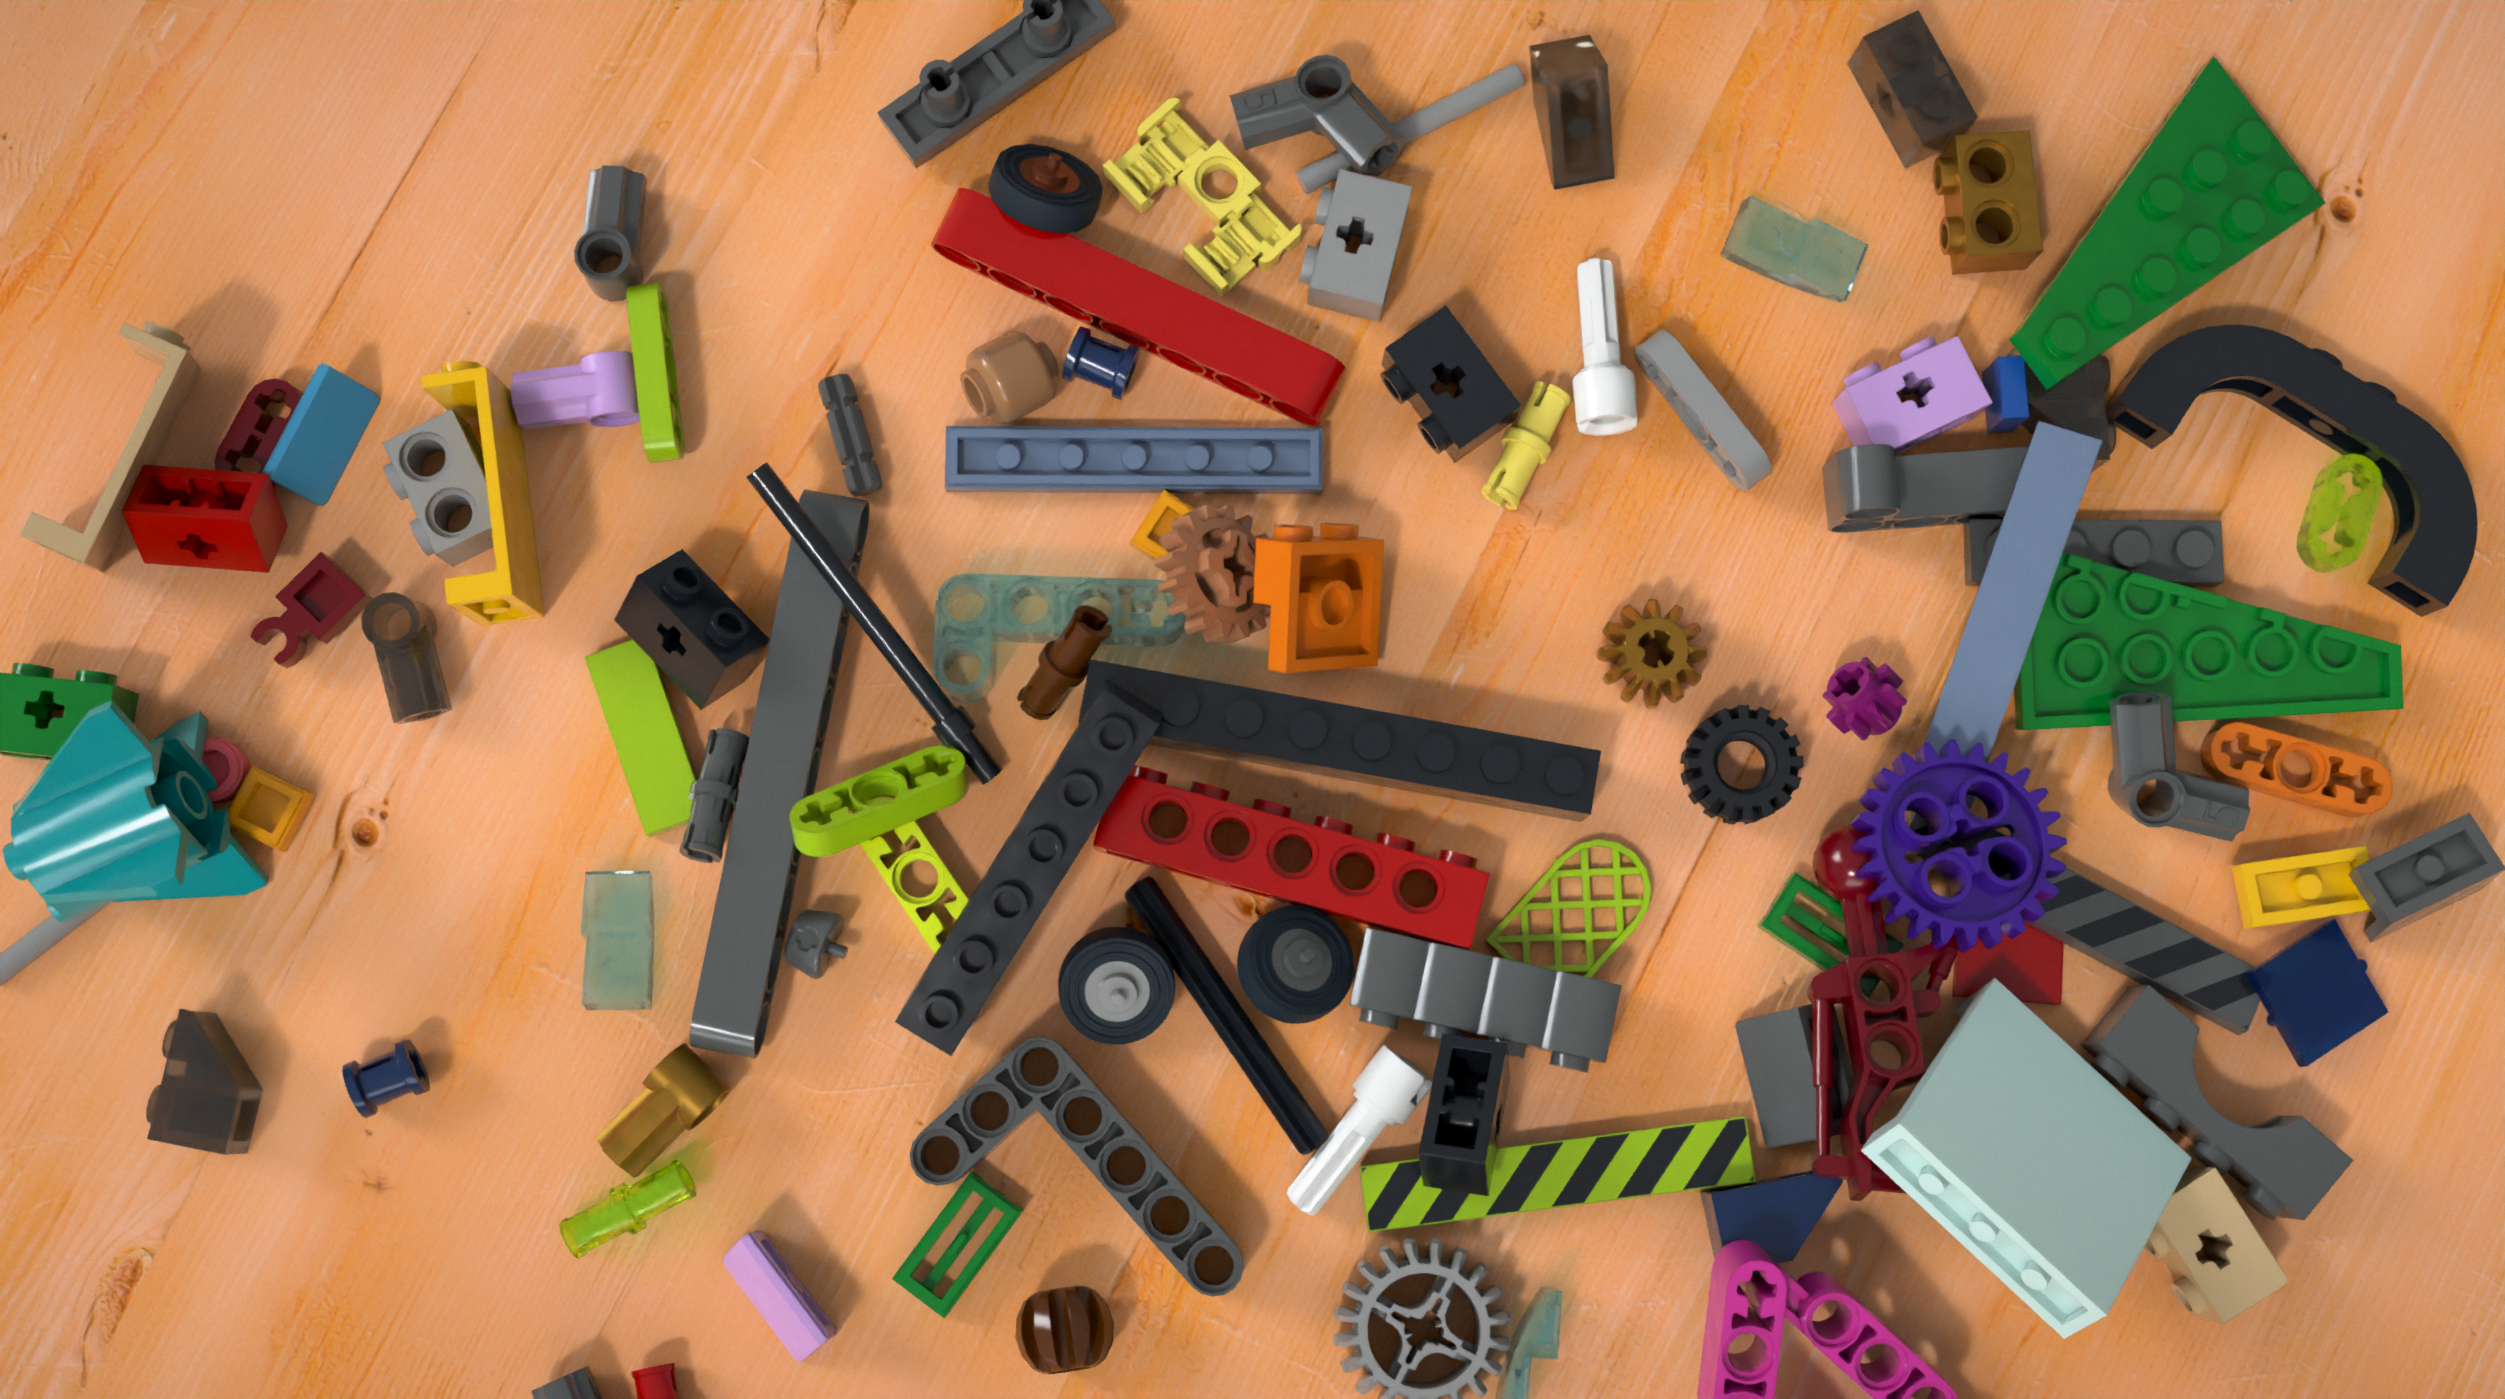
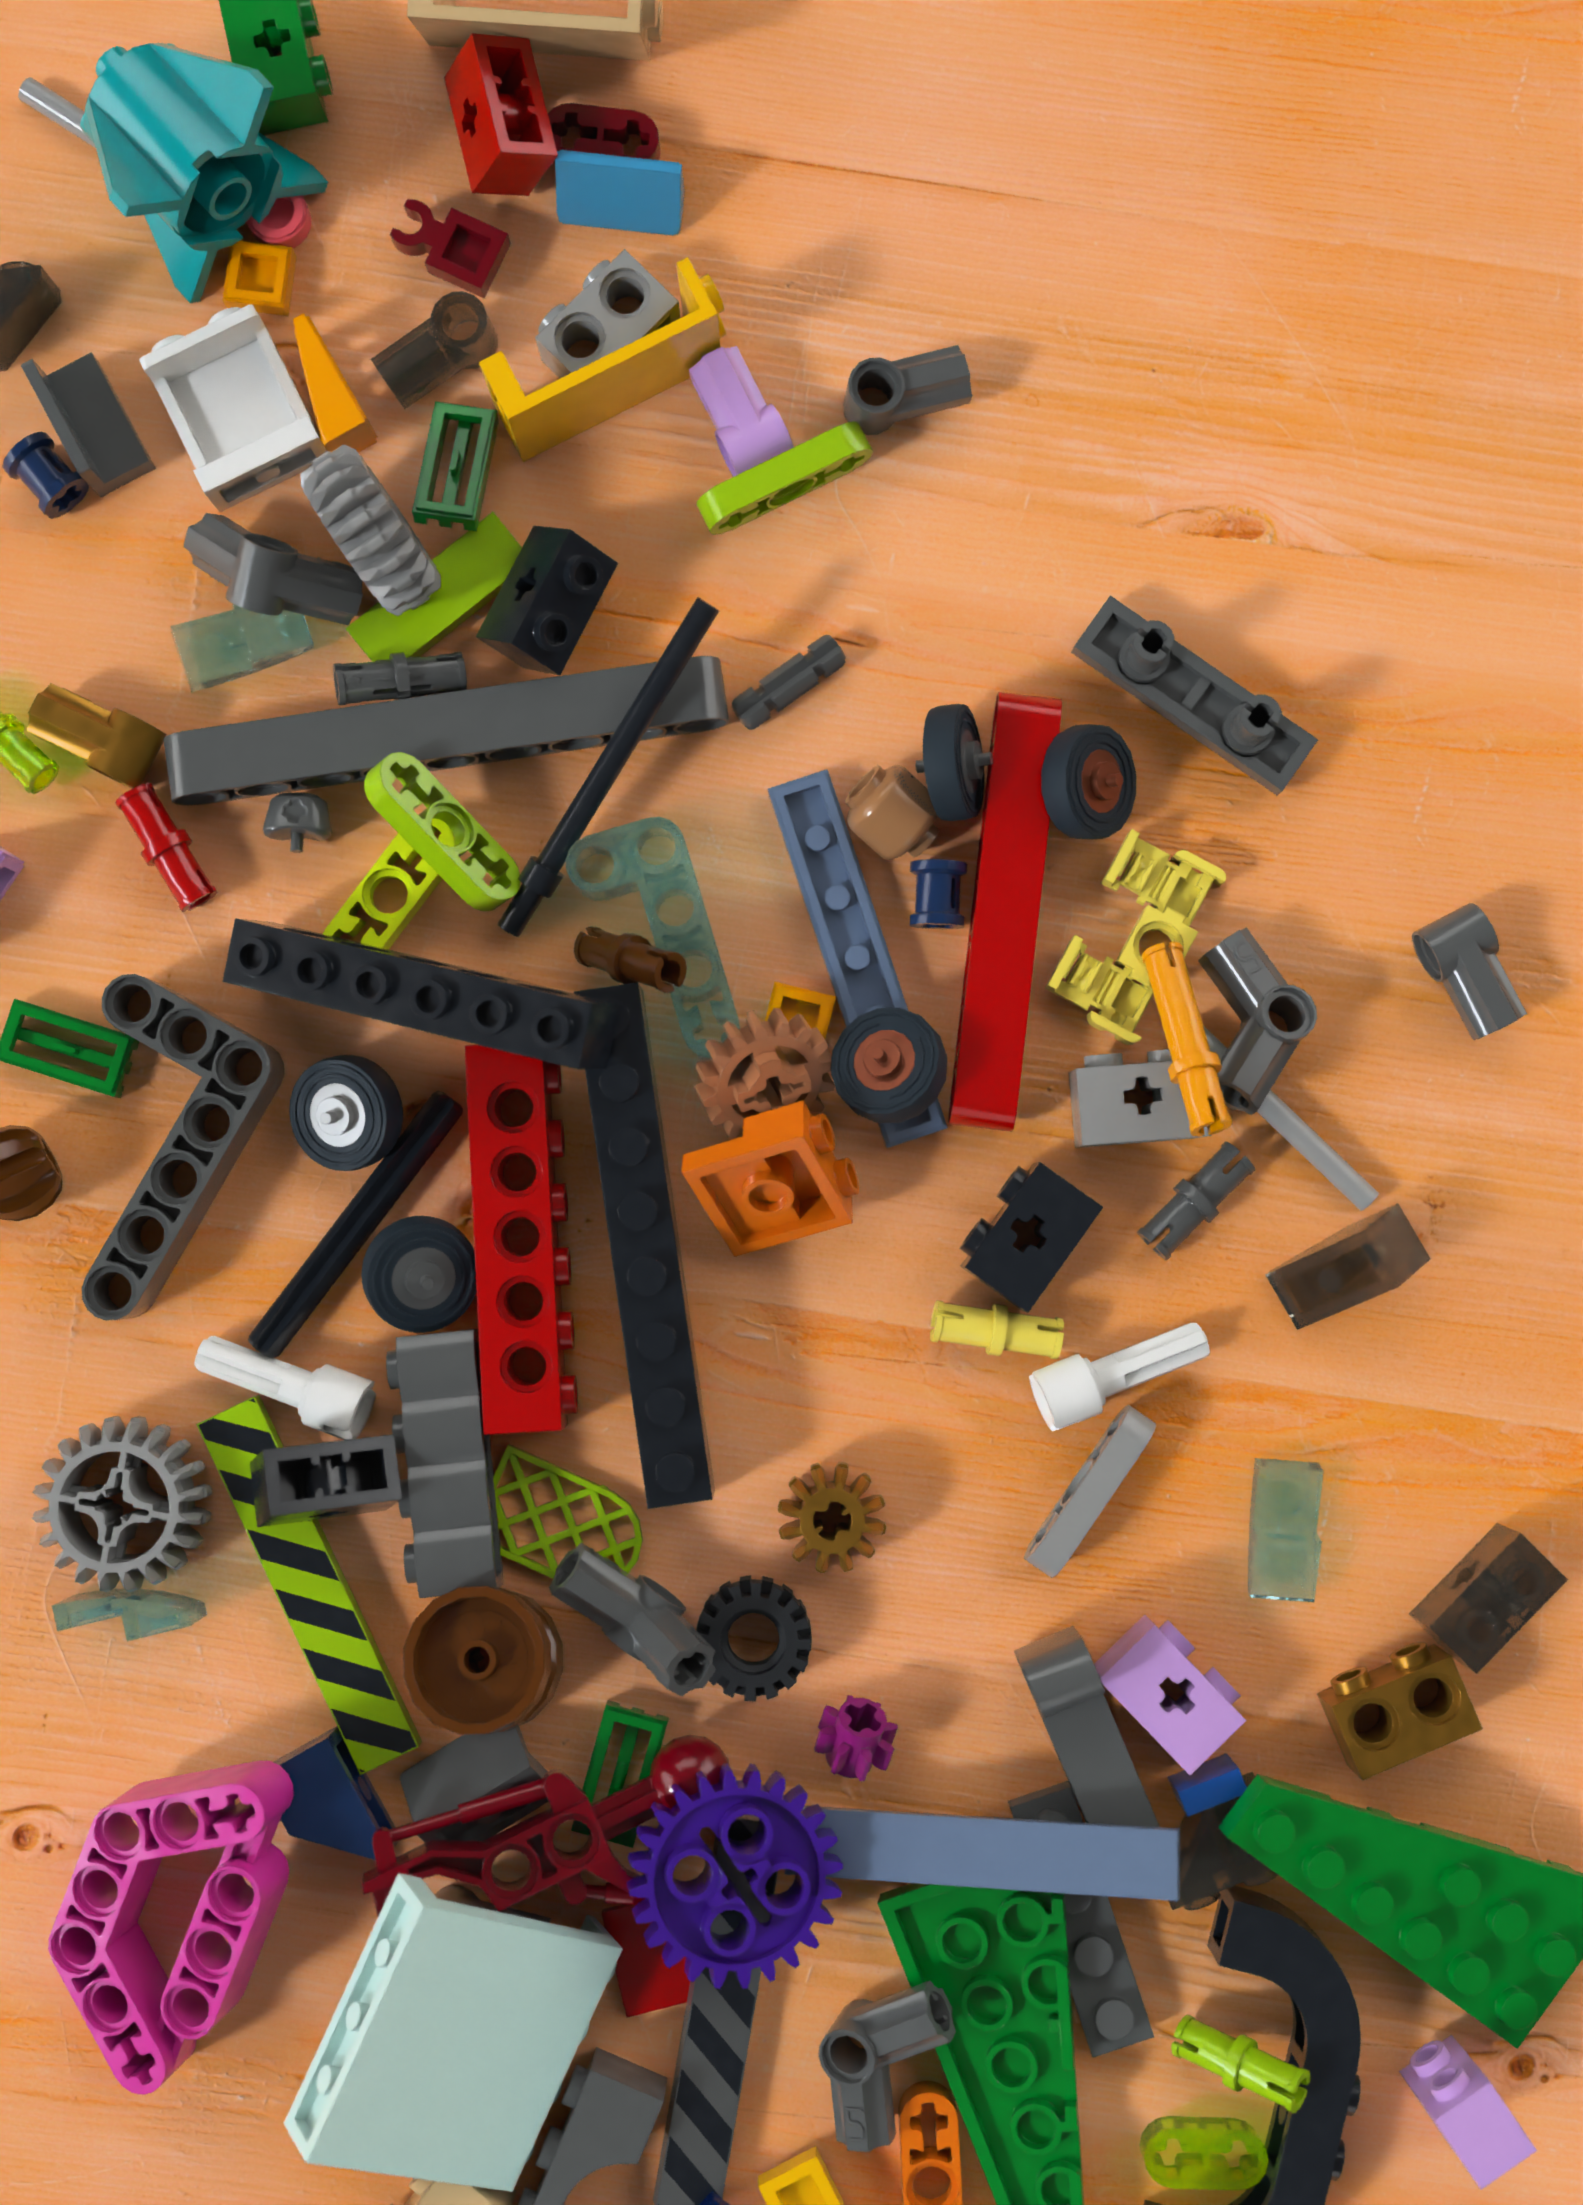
camera: 75 degrees right, 5 degrees up
(350, 1016) = (91, 423): none -> dark grey panel
(388, 871) = (234, 406): none -> white panel
(428, 769) = (333, 402): none -> light orange slope
(564, 768) = (370, 530): none -> light grey gear
(567, 698) = (448, 510): none -> green tile
(567, 884) = (271, 574): none -> dark grey piece
(796, 1079) = (166, 847): none -> red pin
(984, 303) = (953, 762): none -> black wheel
(1248, 455) = (889, 1065): none -> black wheel
(1307, 176) = (1192, 1061): none -> light orange pin
(1466, 226) = (1196, 1200): none -> dark grey pin
(1676, 1059) = (445, 1655): none -> reddish brown wheel
(1689, 863) = (636, 1617): none -> dark grey piece
(2266, 446) = (1241, 2063): none -> lime pin
(2366, 259) = (1467, 2110): none -> lavender brick

